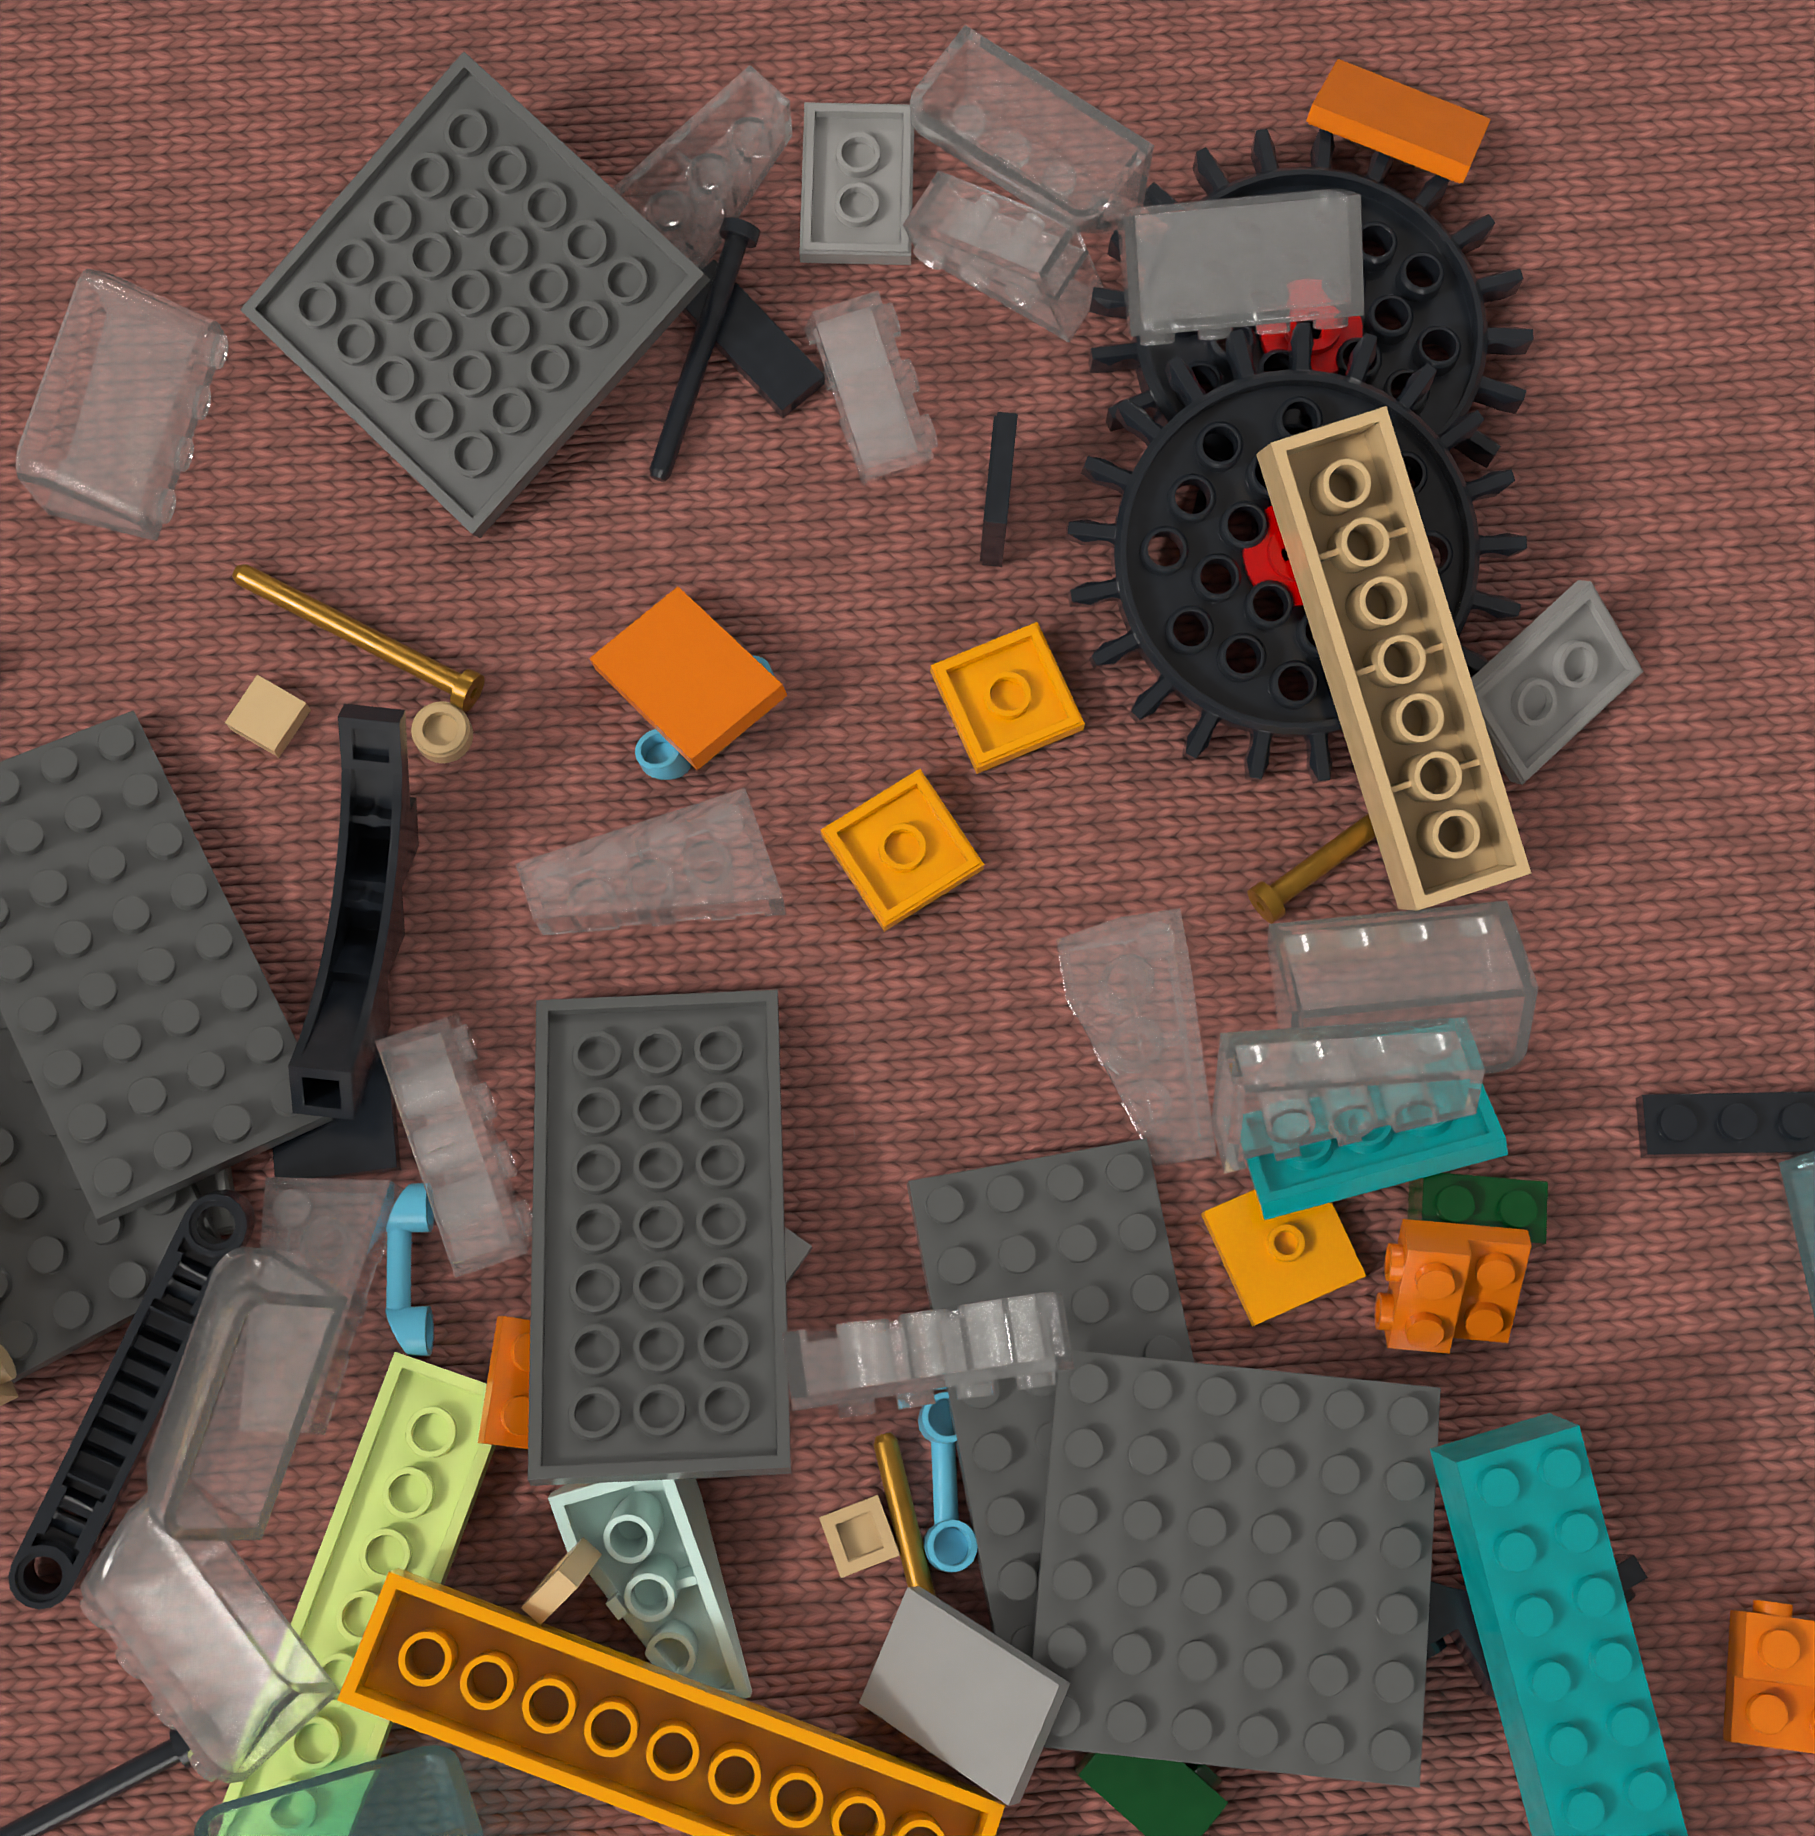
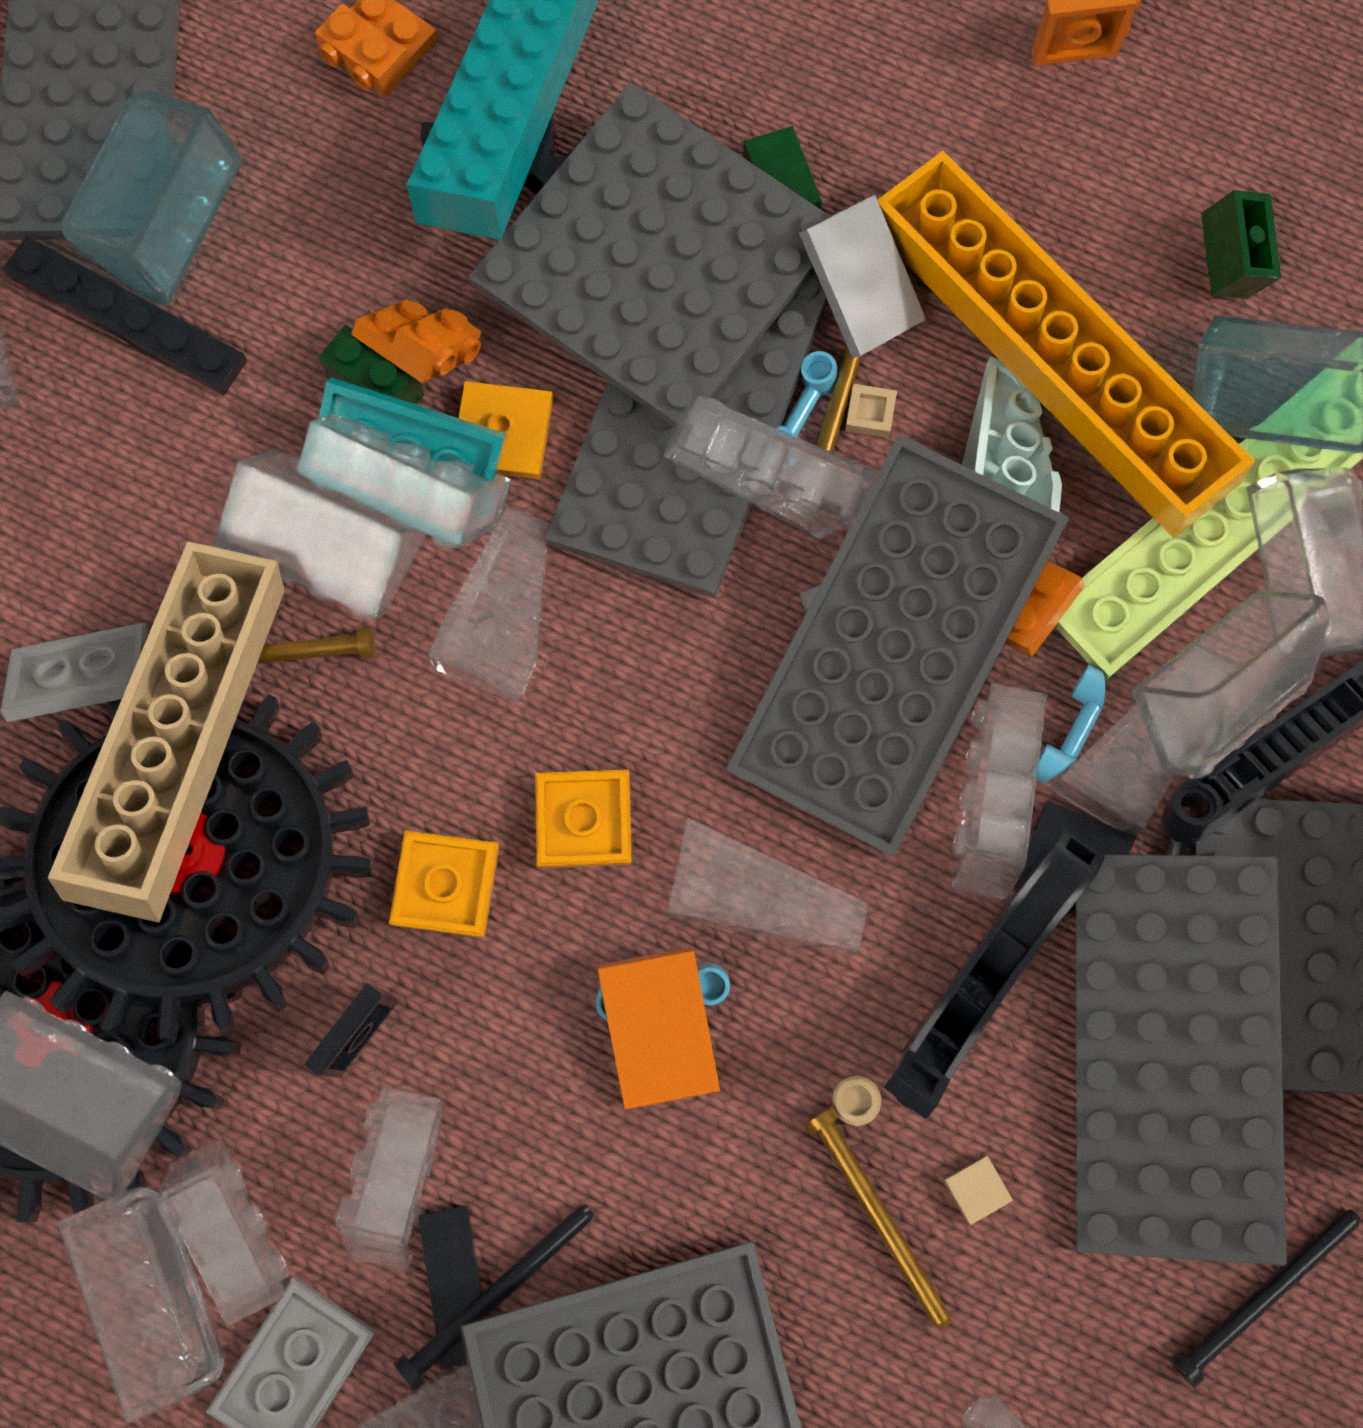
camera: 145 degrees left, 0 degrees up
(561, 1581) = (1075, 465): tan tile -> none

